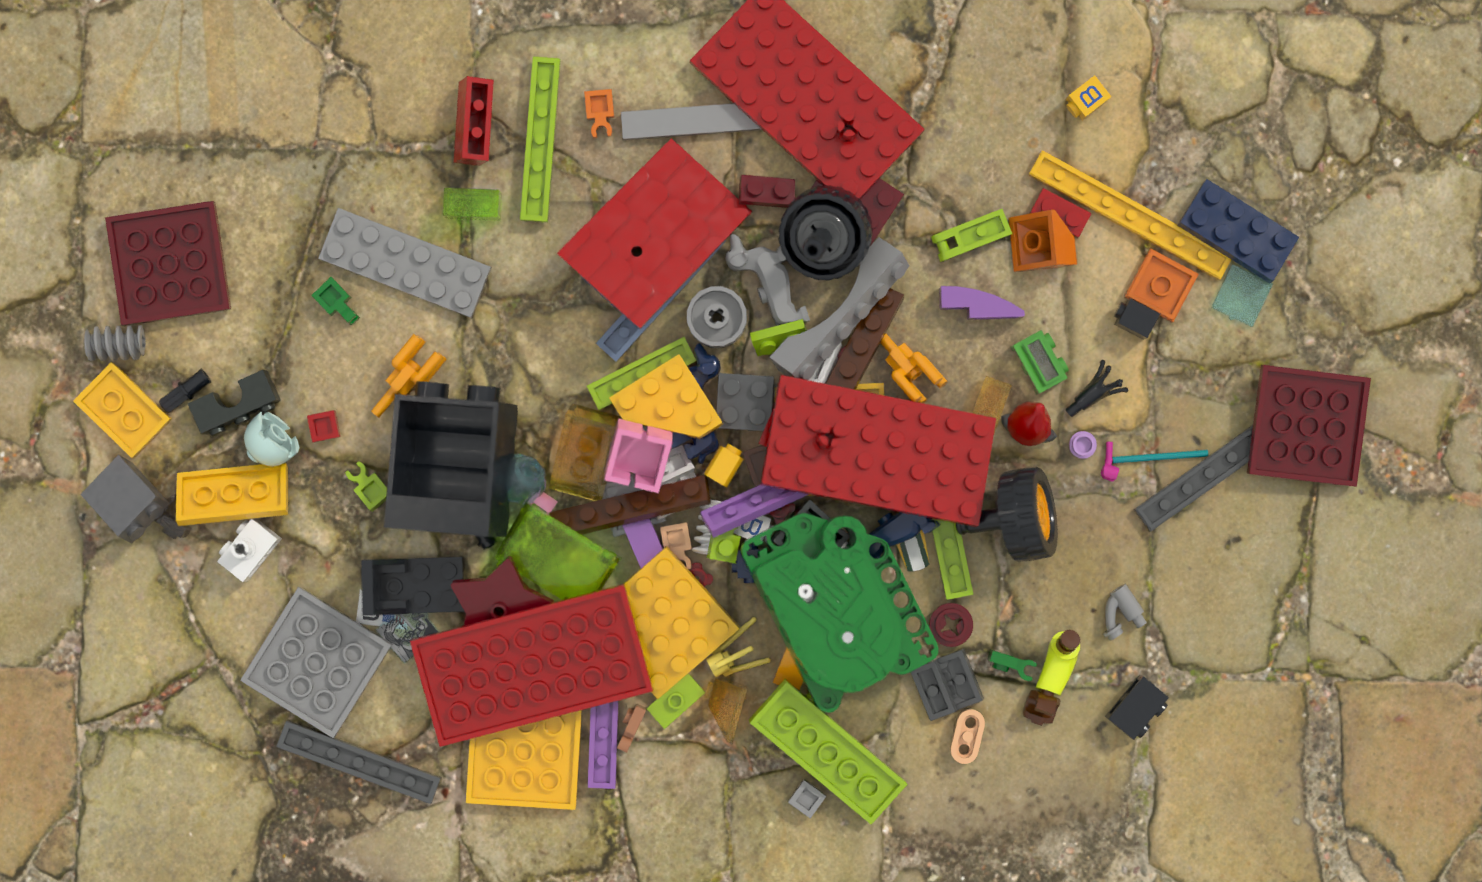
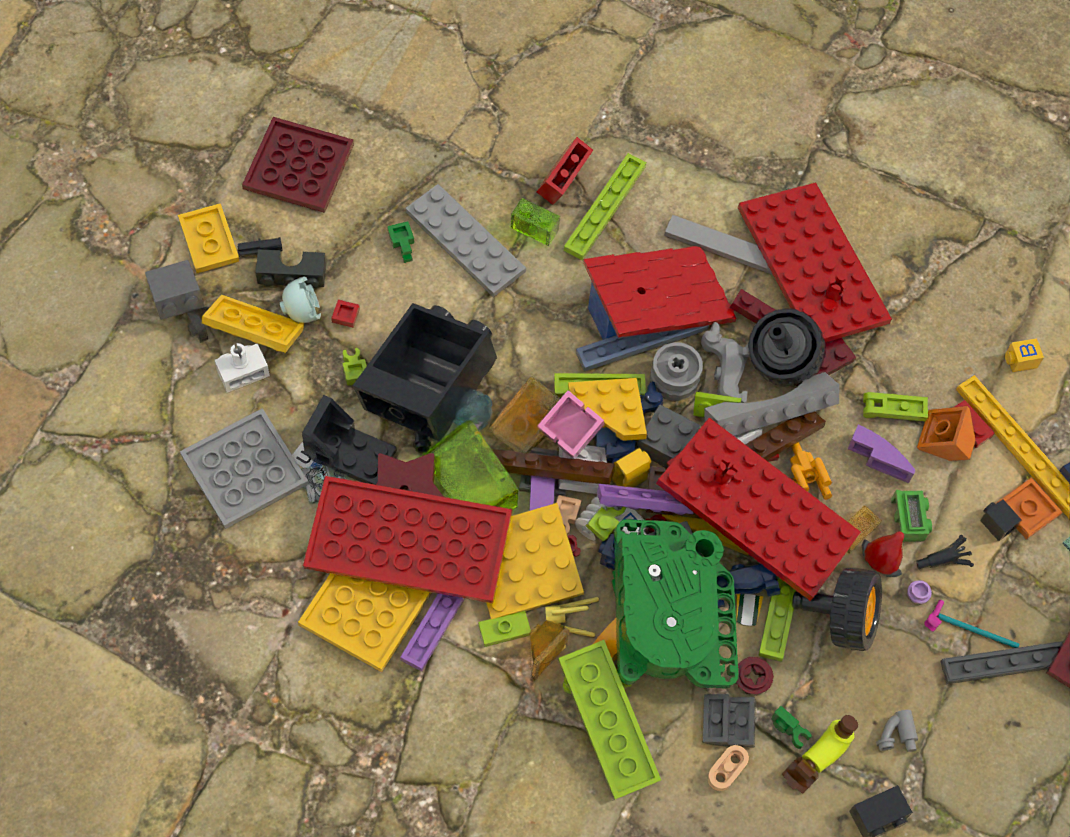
camera: 15 degrees right, 25 degrees down
(115, 344) = (230, 194): light grey piece -> none
(358, 762) = (233, 554): dark grey plate -> none
(407, 372) = (428, 300): light orange plant -> none
(599, 108) = (657, 206): orange plate -> none
(632, 719) = (463, 625): nougat plate -> none
(807, 798) = (572, 753): light grey plate -> none

